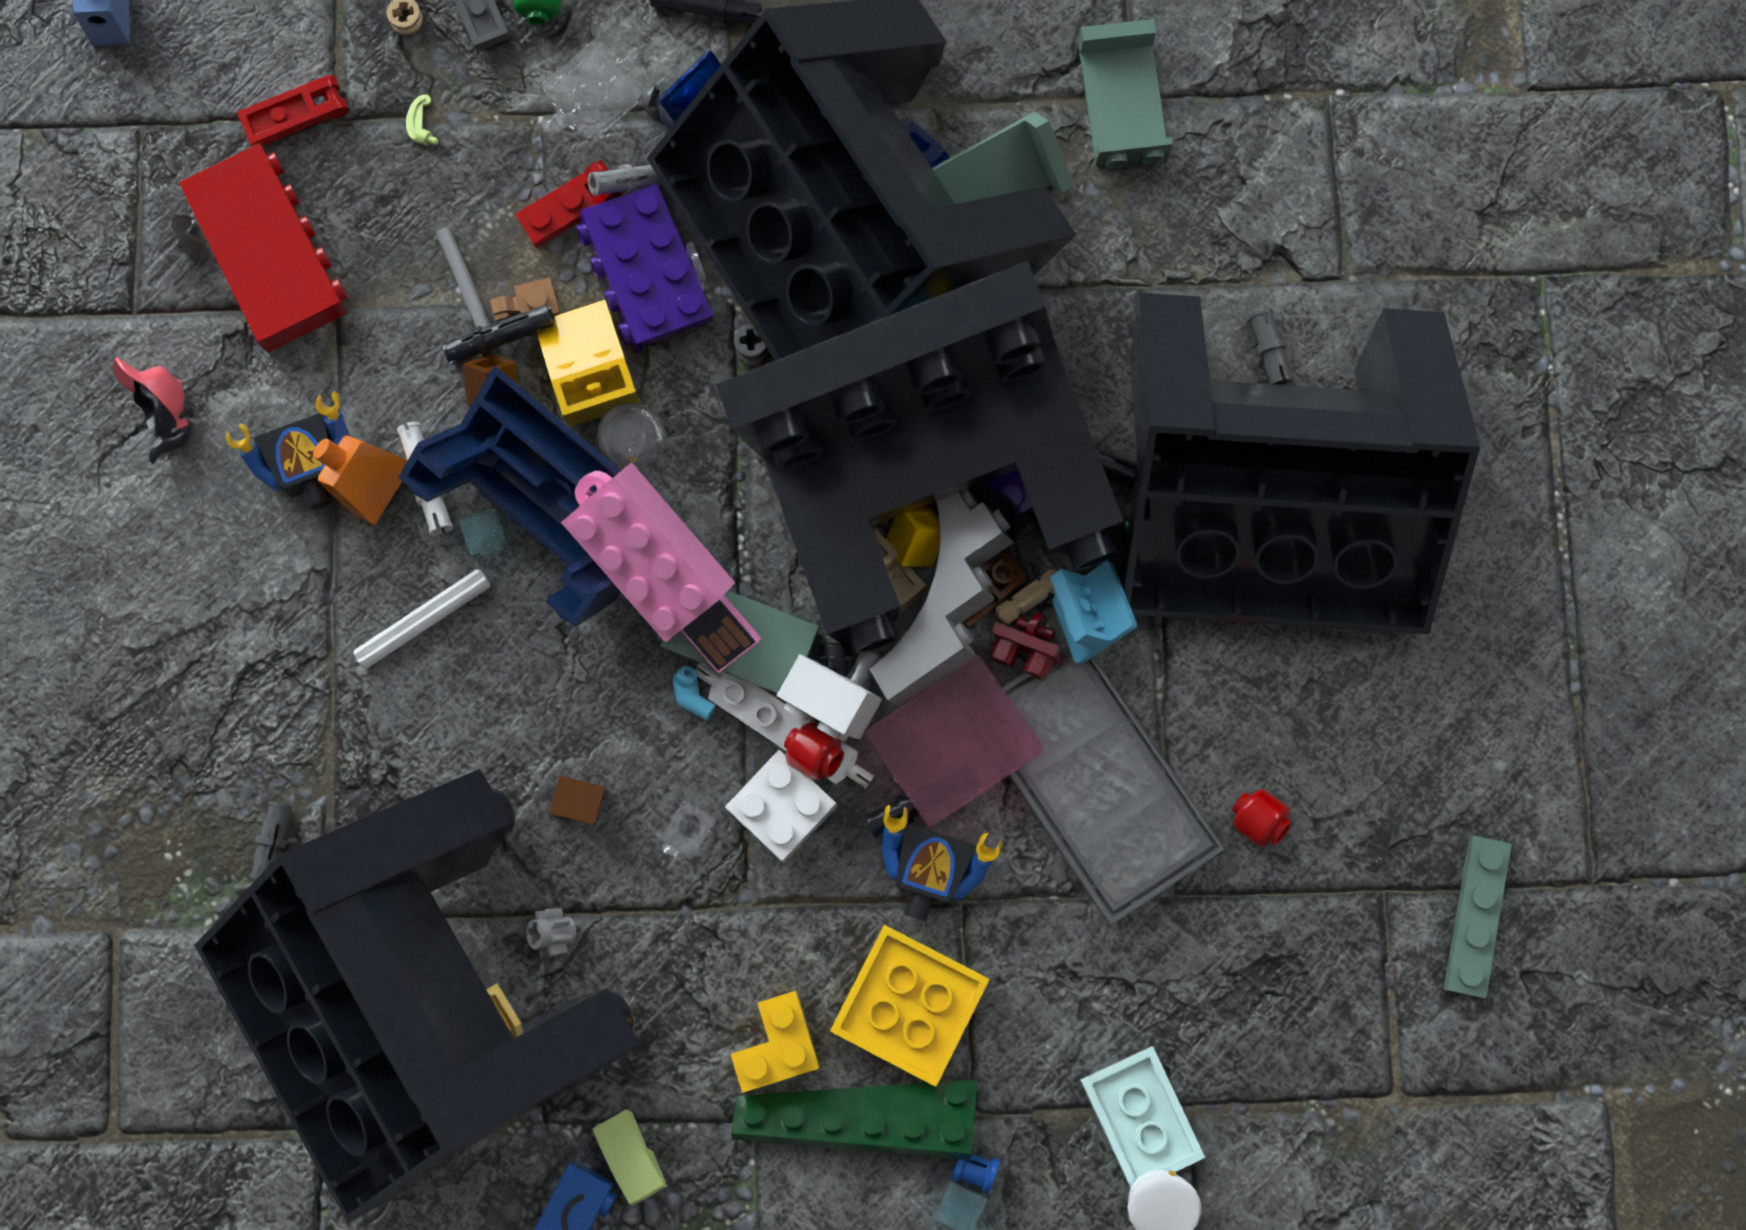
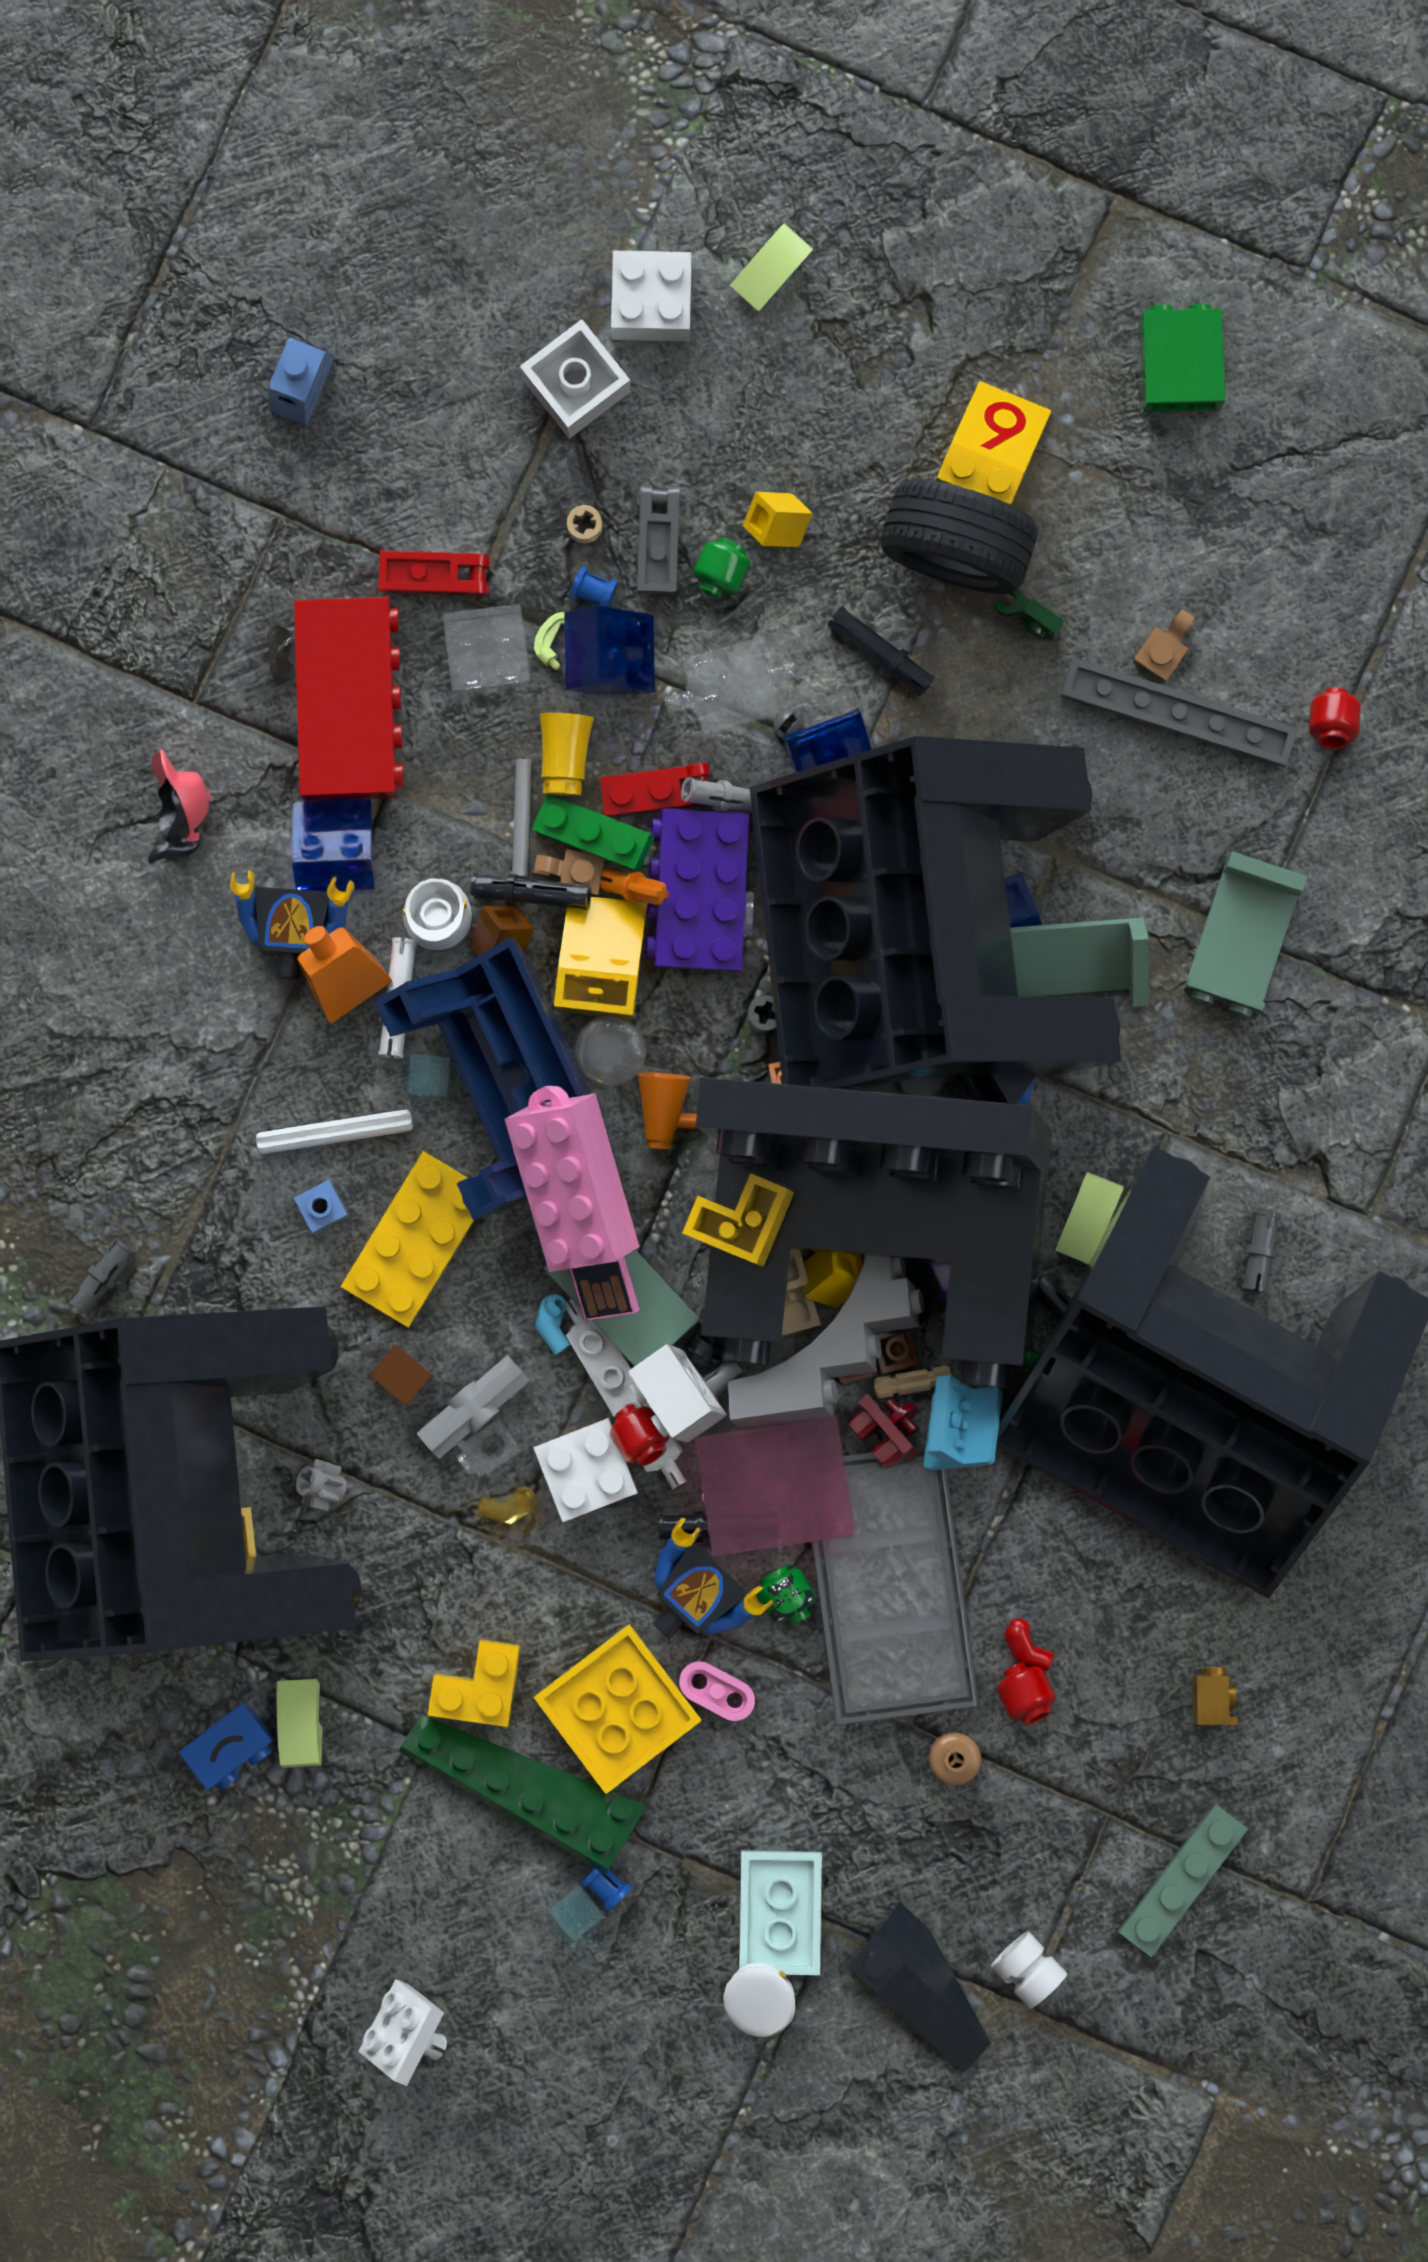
camera: 25 degrees right, 5 degrees up
(304, 370) = (332, 842): none -> clear blue bracket
(367, 152) = (486, 648): none -> clear plate
(426, 392) = (437, 914): none -> white piece
(436, 63) = (593, 588): none -> blue bush
(450, 694) = (335, 1211): none -> medium blue plate
(473, 106) = (609, 651): none -> clear blue slope
(473, 204) = (564, 752): none -> yellow plant
(530, 261) = (593, 833): none -> green plate
(535, 681) = (412, 1242): none -> yellow plate
(586, 287) = (634, 886): none -> orange axle
(655, 799) = (473, 1407): none -> light grey piece
(699, 462) = (662, 1107): none -> orange piece
(731, 873) = (511, 1508): none -> clear yellow arm
(822, 520) = (748, 1229): none -> yellow brick
(990, 946) = (716, 1691): none -> bright pink plate
(1015, 831) = (789, 1593): none -> green head
(1112, 387) = (1089, 1217): none -> yellowish green slope
(1214, 905) = (951, 1744): none -> medium nougat head
(1236, 779) = (1022, 1647): none -> red arm
(1287, 1118) = (914, 1978): none -> black wedge
(1390, 1062) = (1029, 1970): none -> white wheel
(1424, 743) = (1213, 1697): none -> pearl gold brick

